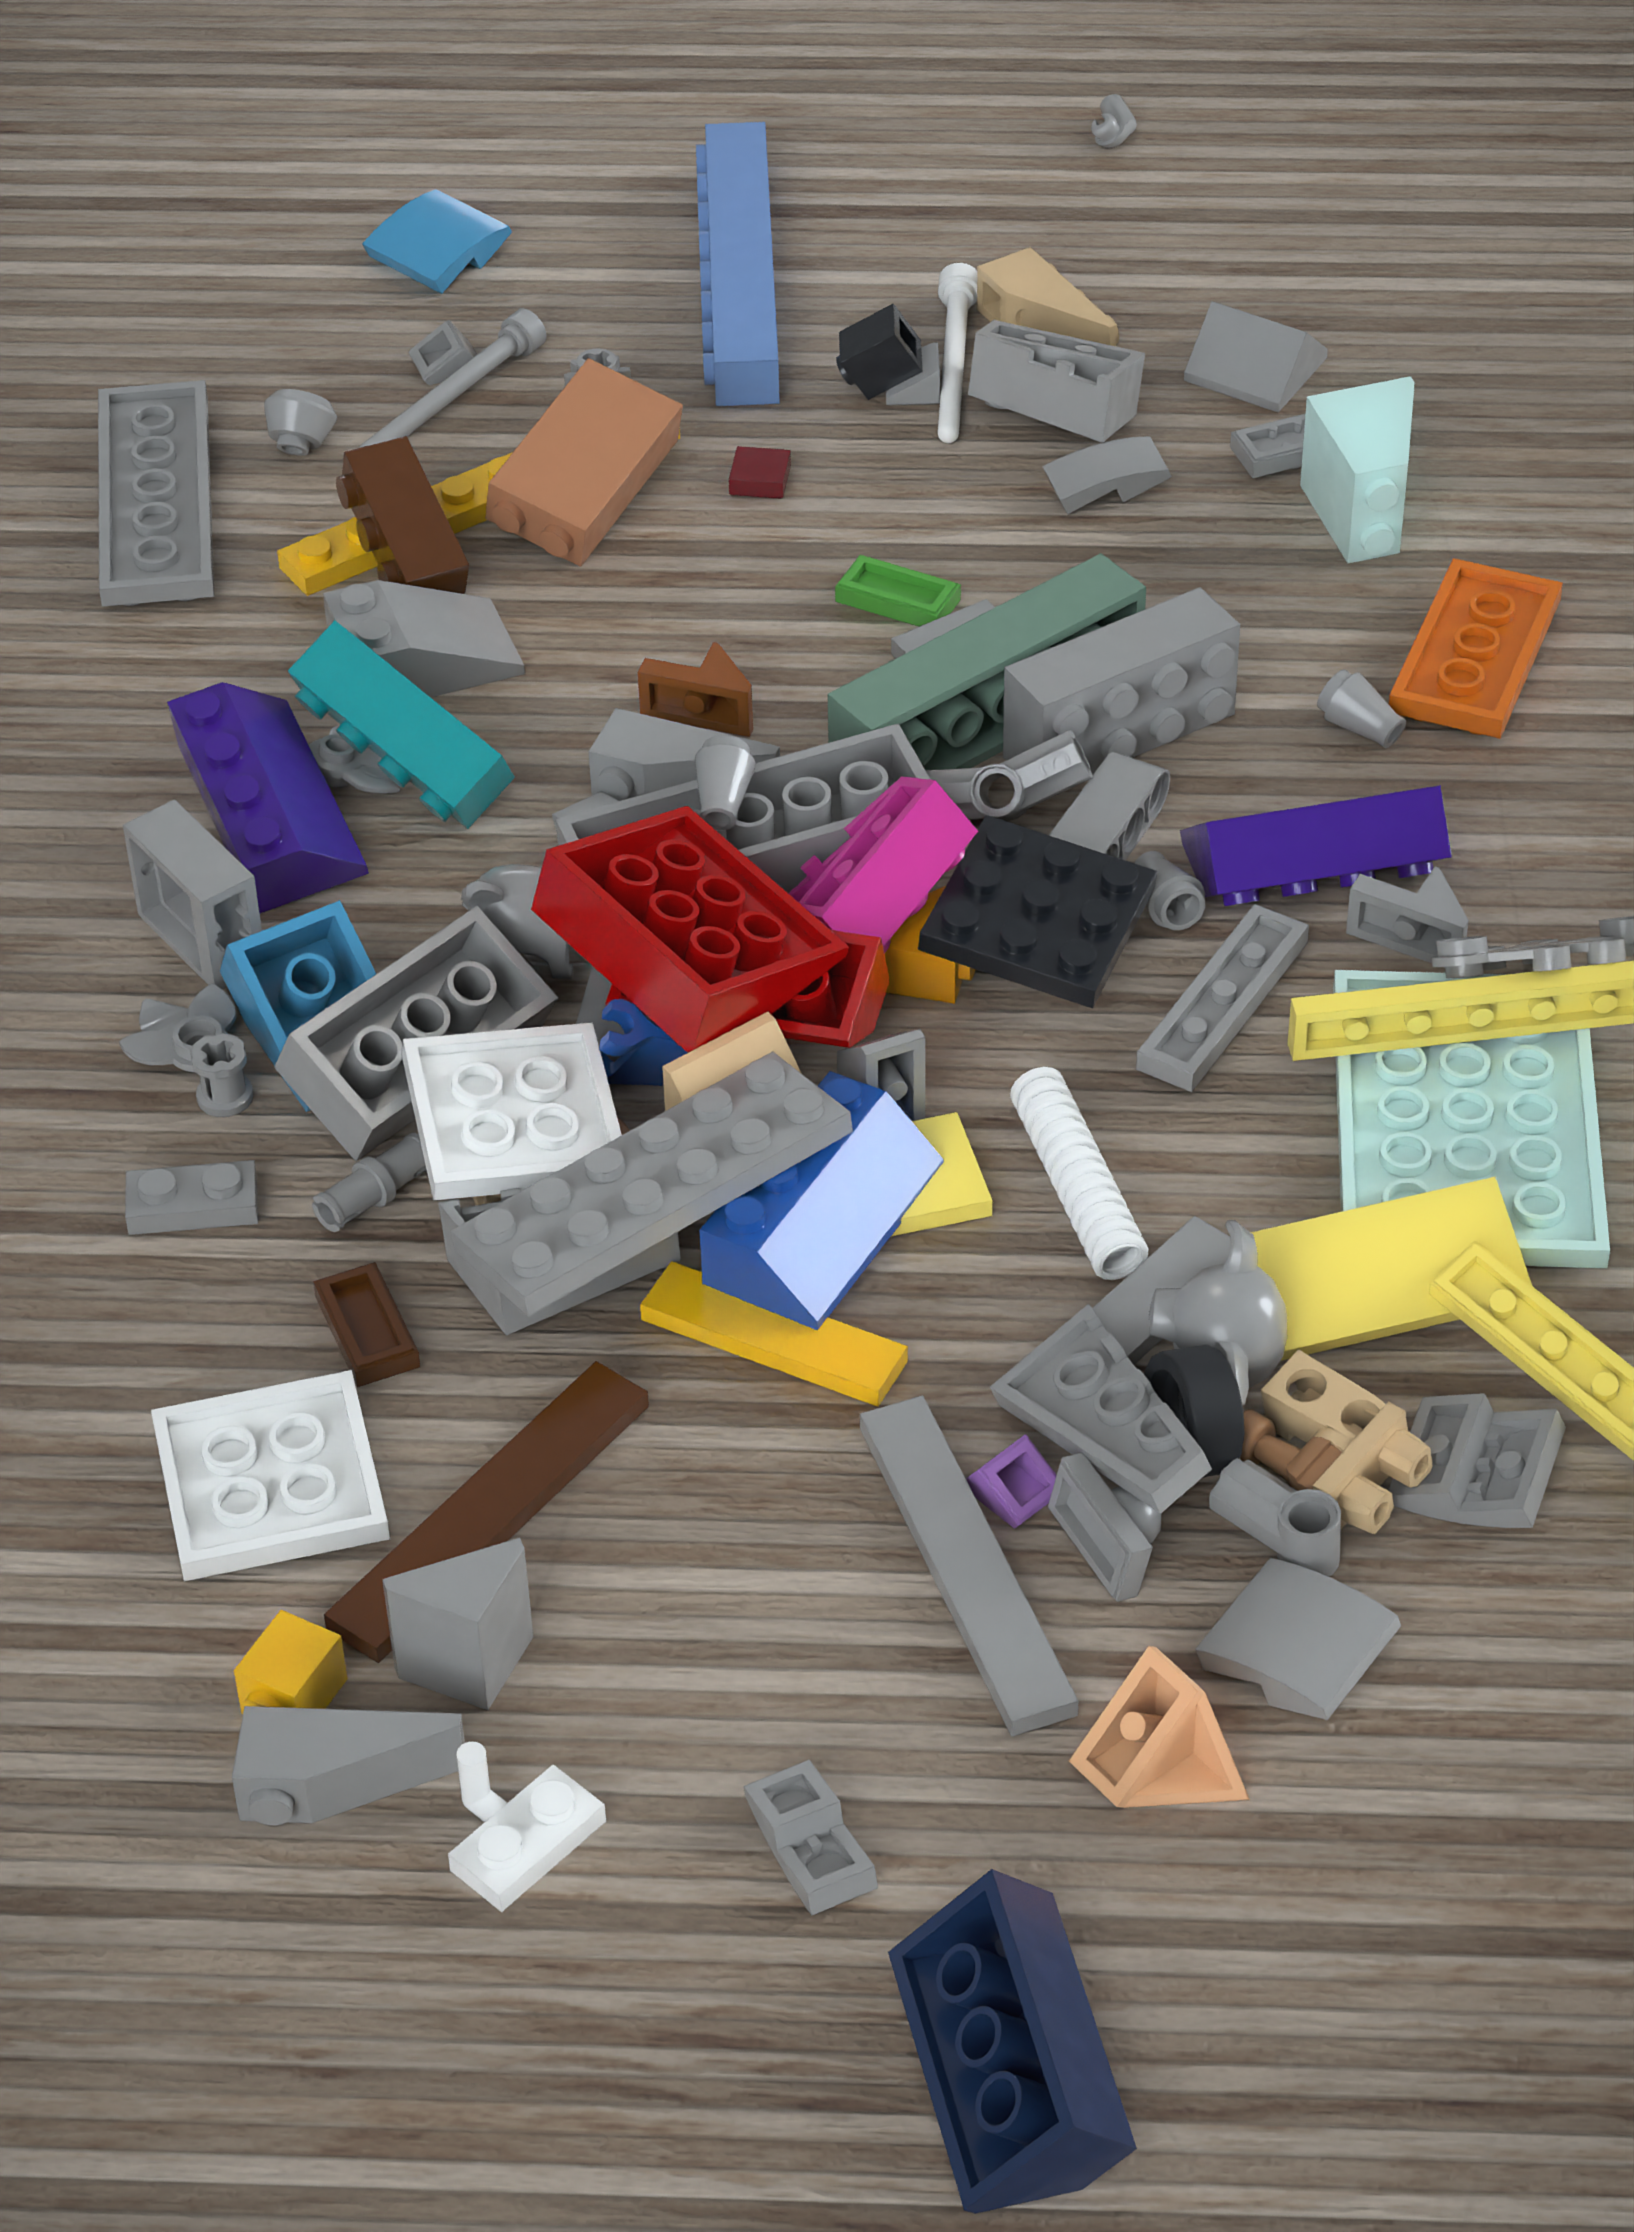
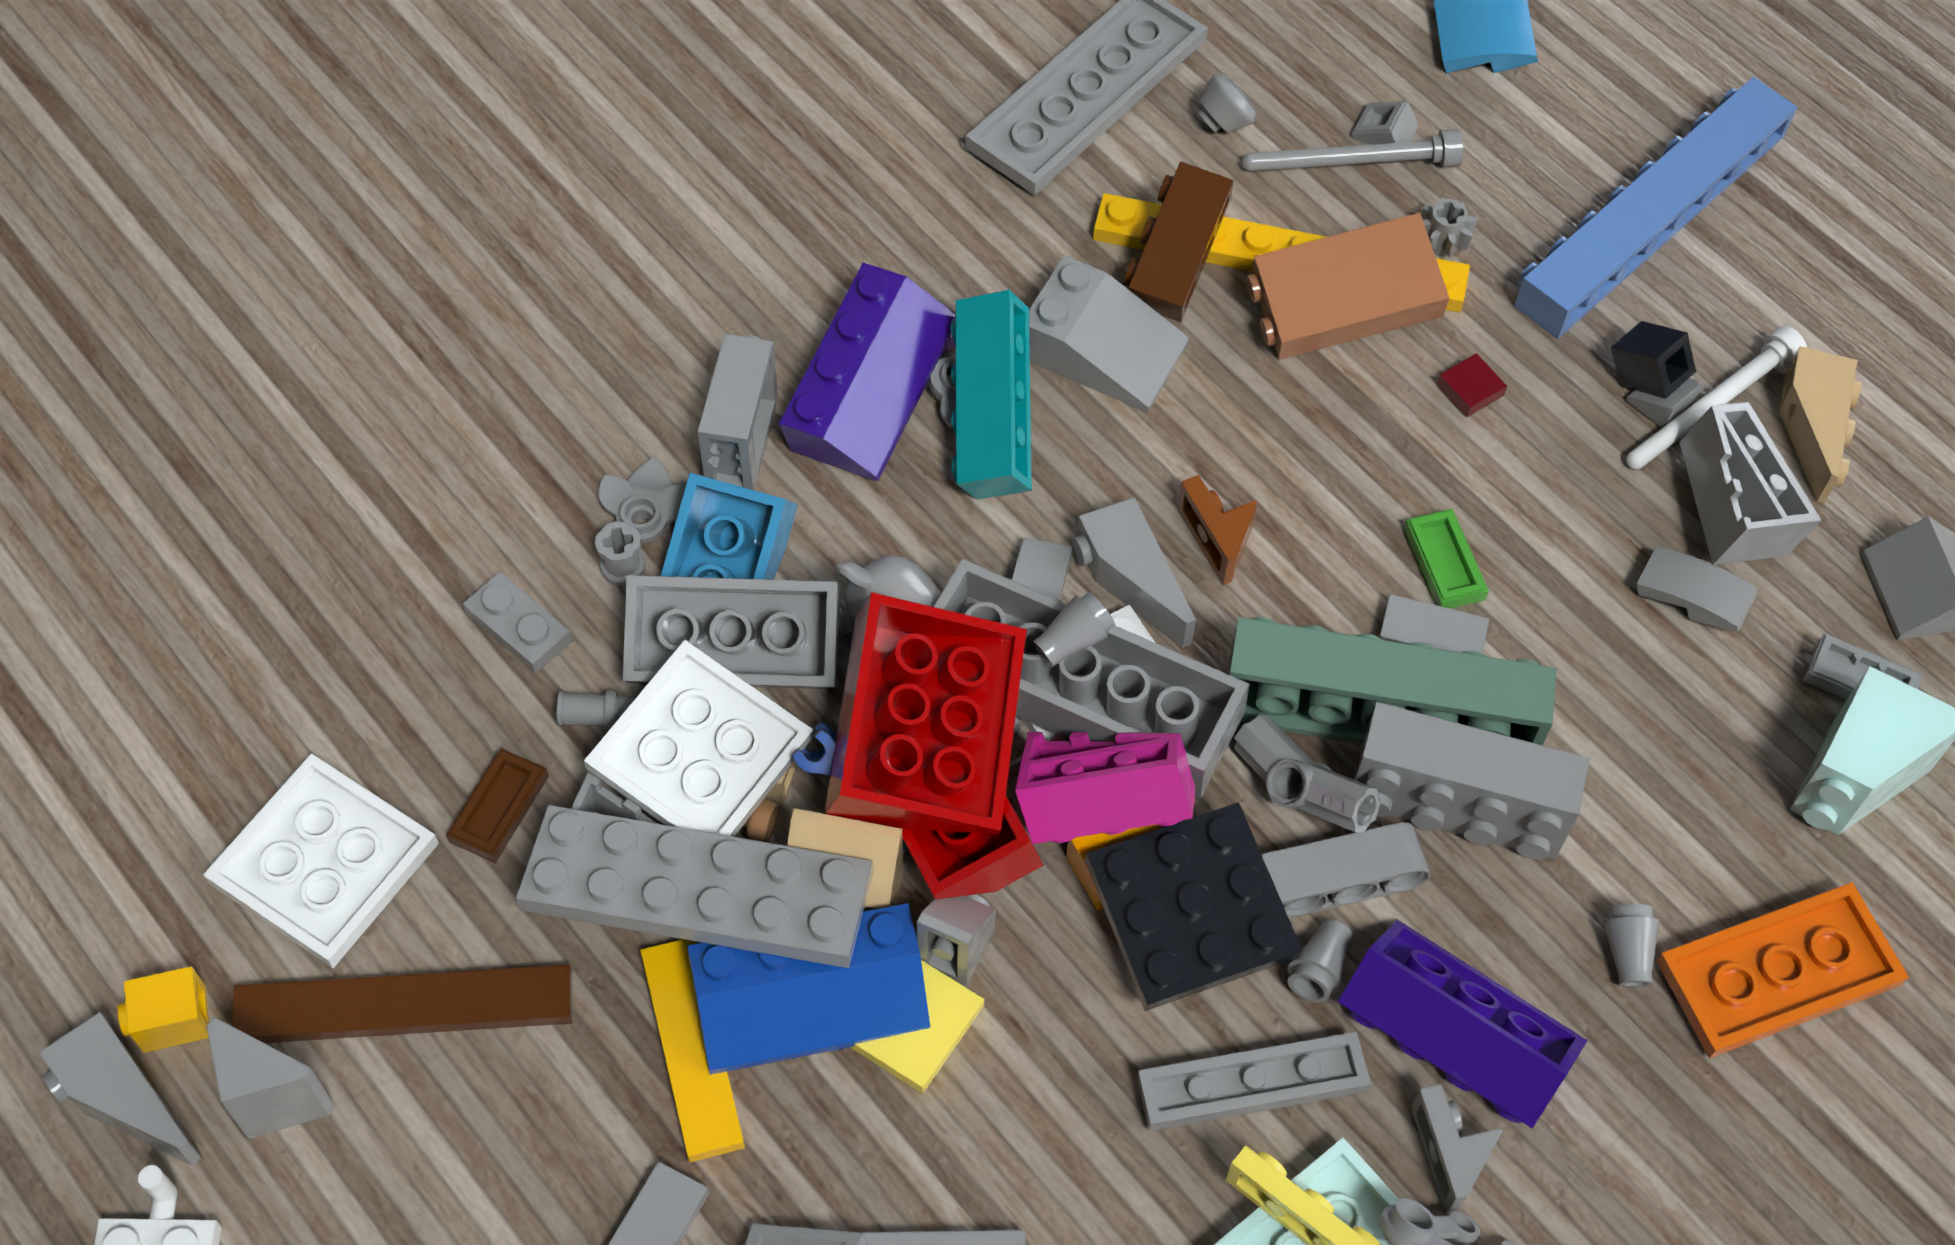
camera: 45 degrees right, 15 degrees up
(1078, 1173) = (994, 1123): white piece -> none

